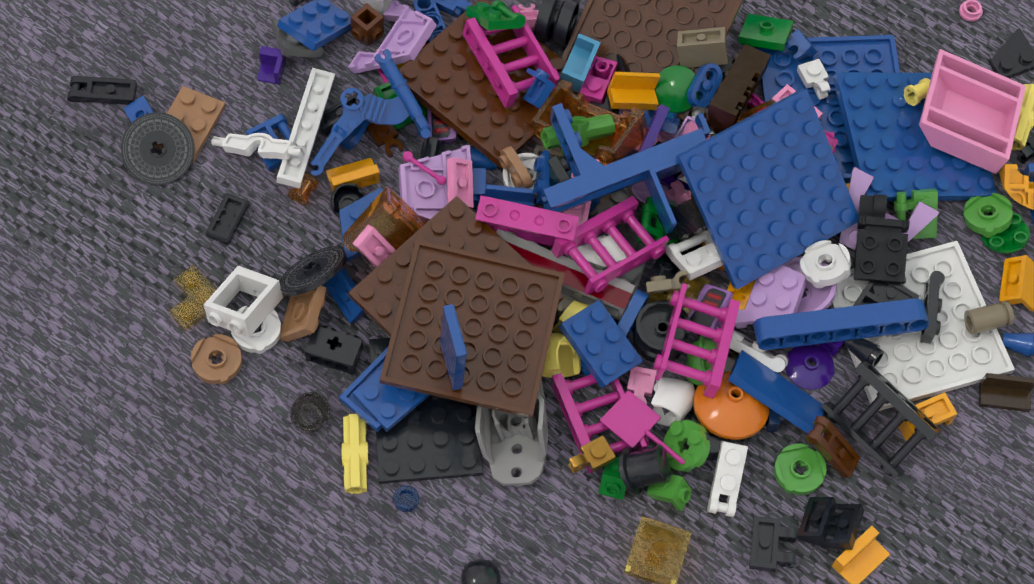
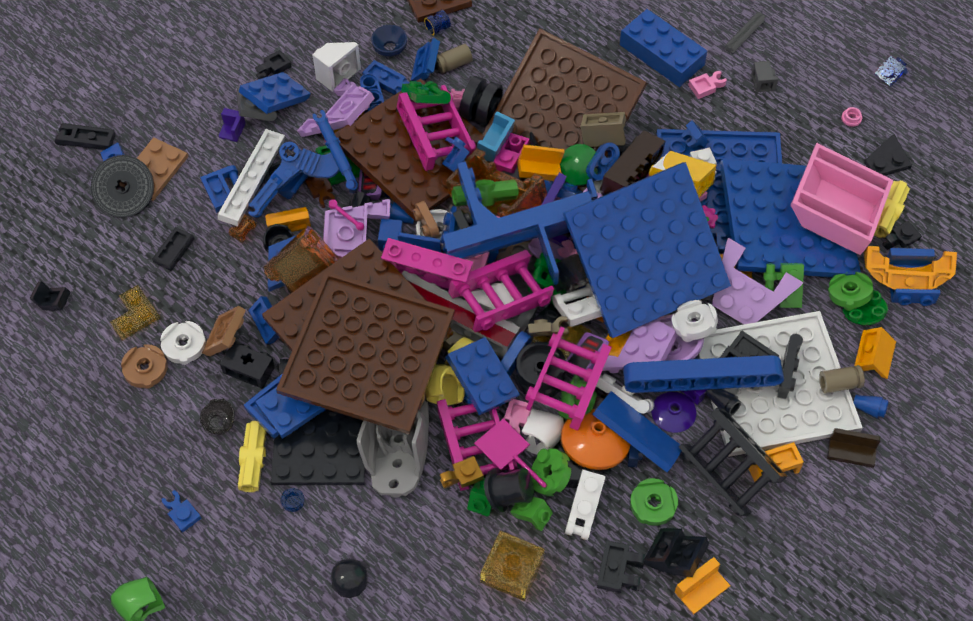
camera: 10 degrees right, 5 degrees down
(95, 287) = (49, 298): none -> black bracket
(242, 279) = (194, 315): white window -> none
(268, 146) = (209, 186): white piece -> none
(285, 524) = (182, 513): none -> blue plate
(313, 270) = (237, 296): black piece -> none
(367, 25) = (317, 96): reddish brown brick -> none
(373, 245) = (288, 274): bright pink plate -> none
(453, 347) = (338, 361): blue tile -> none
(460, 180) = (377, 227): bright pink plate -> none
(765, 32) = (665, 123): green plate -> none
(786, 82) = (700, 171): none -> yellow panel
(833, 446) = (685, 483): reddish brown plate -> none
(881, 245) = (746, 306): black plate -> none
(916, 93) = (792, 180): light yellow bush -> none

